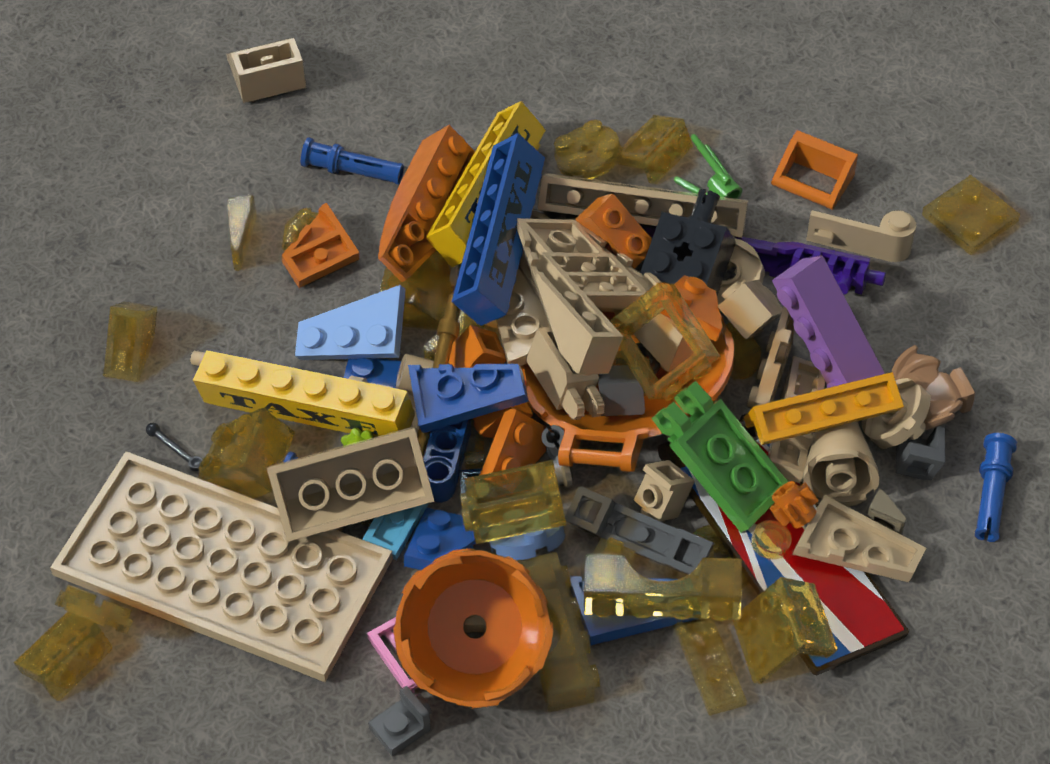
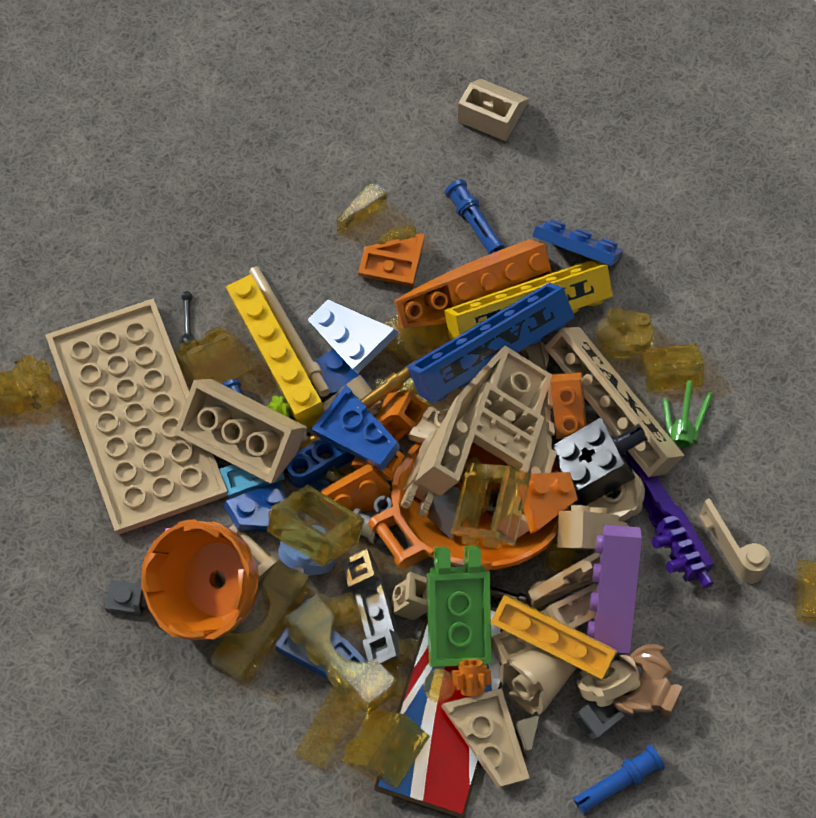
camera: 45 degrees right, 10 degrees up
(129, 339) = (228, 227): clear yellow slope -> none
(470, 107) = (578, 241): none -> blue plate
(821, 158) = (770, 466): orange tile -> none

